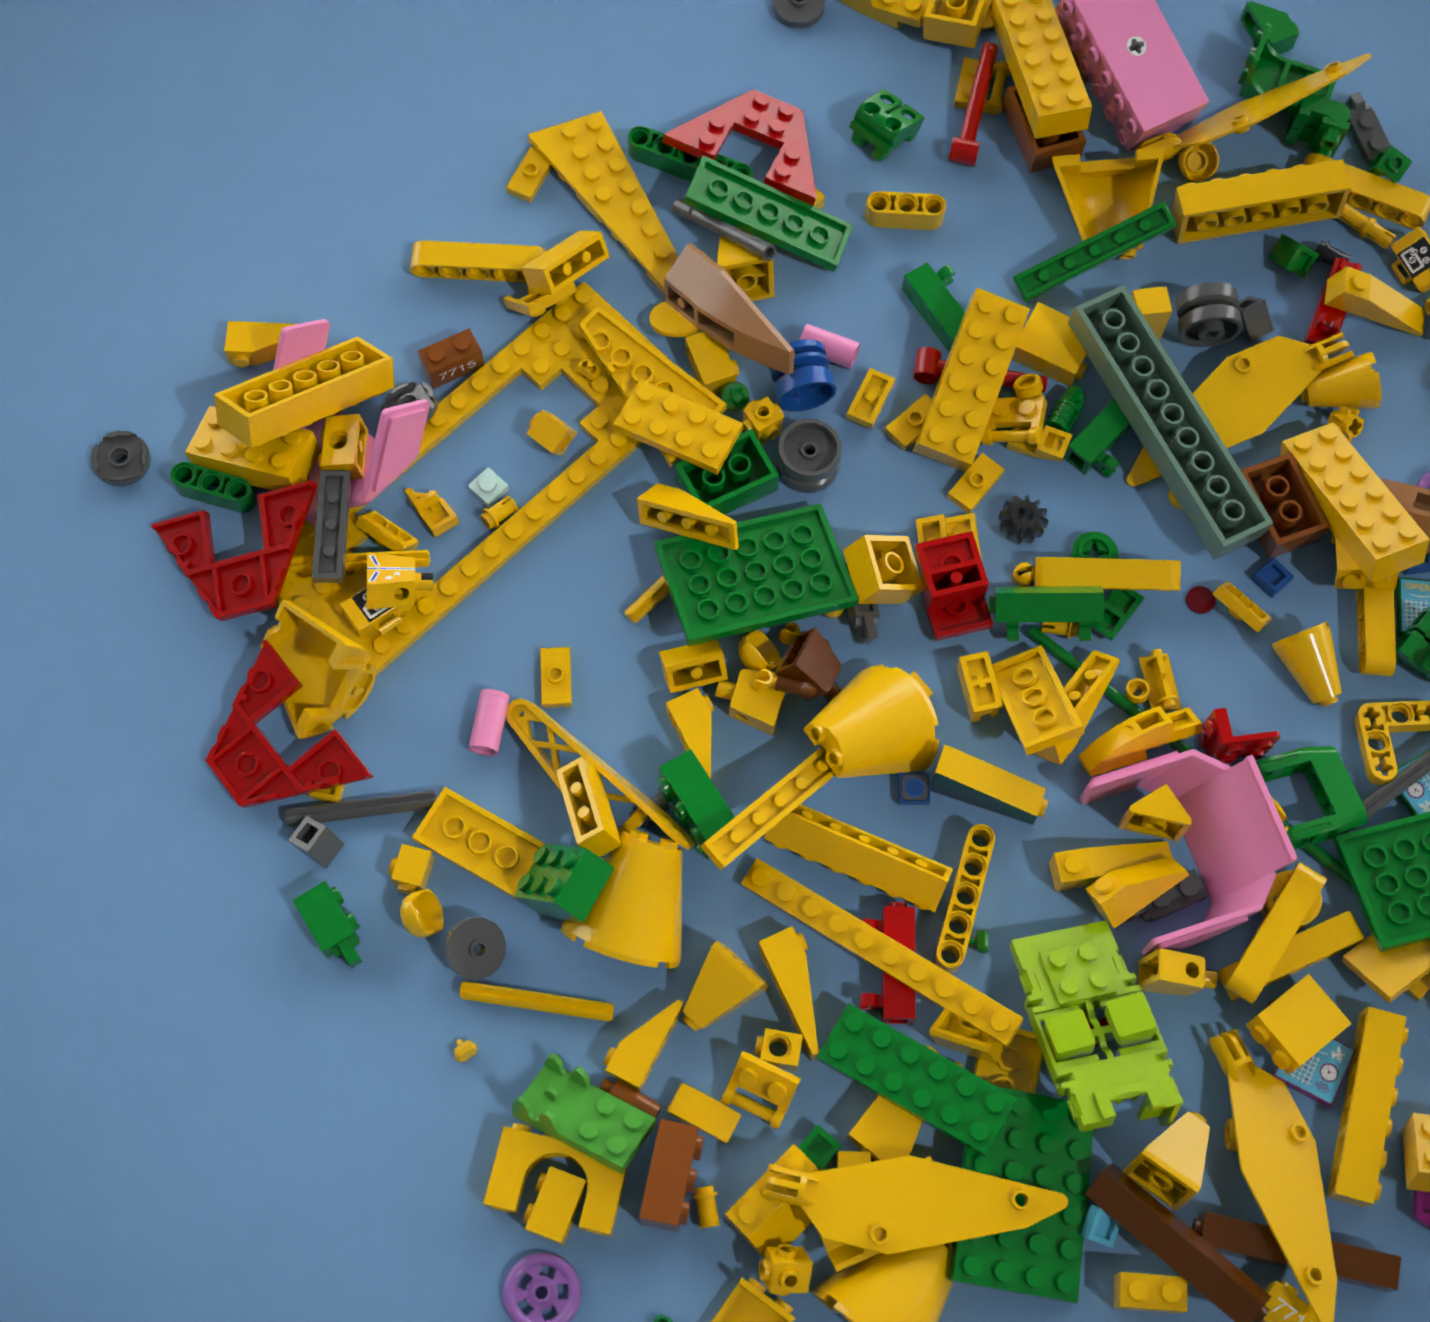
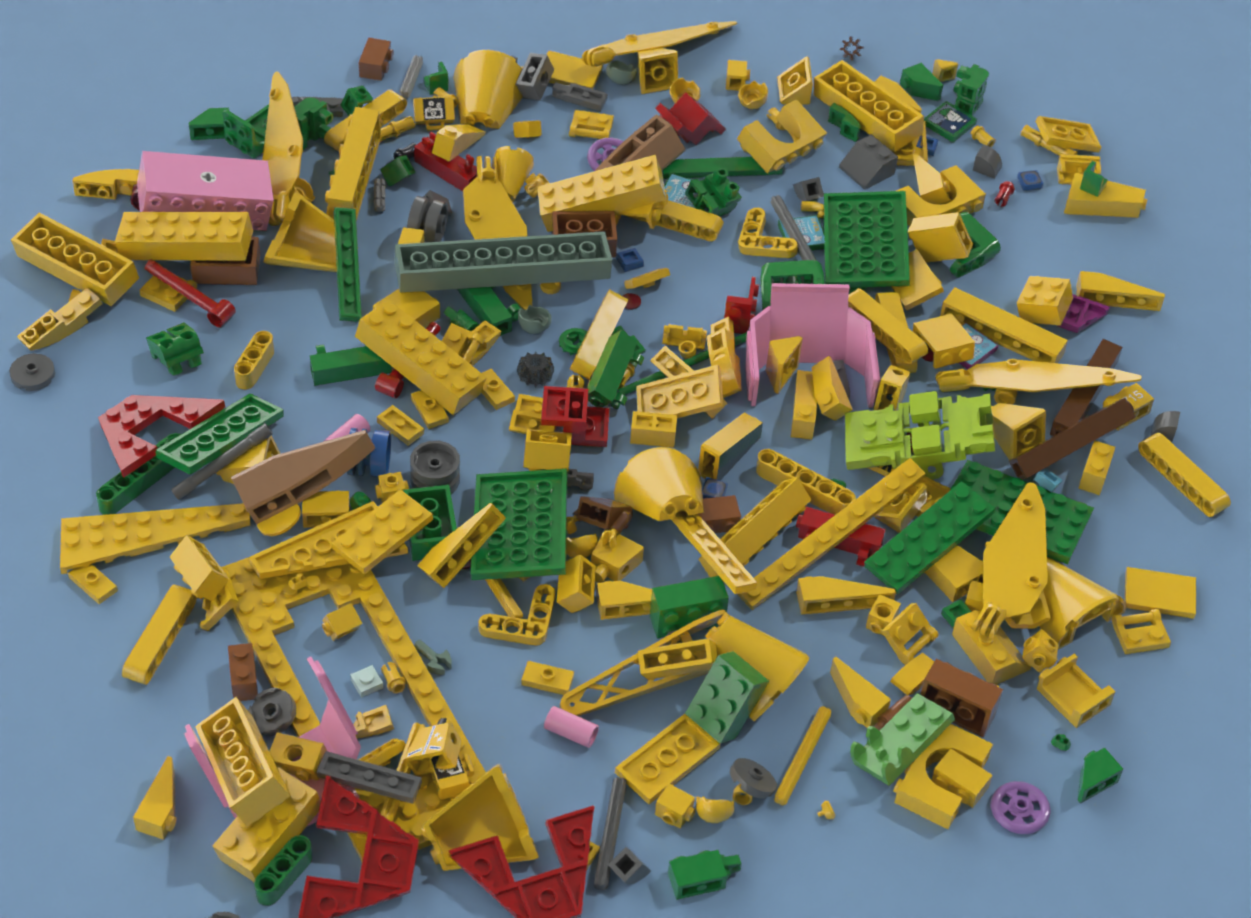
camera: 75 degrees left, 20 degrees down
(544, 546) = (433, 666): none -> sand green bar
(629, 636) = (531, 624): none -> yellow beam
(721, 988) = (828, 631): yellow slope -> none
(867, 801) = (721, 513): none -> dark orange brick
(1028, 386) = (438, 329): yellow tile -> none
(1105, 491) = (534, 319): none -> sand green hair
(1244, 250) = (379, 195): none -> light grey axle
(1312, 663) = (700, 255): yellow cone -> none

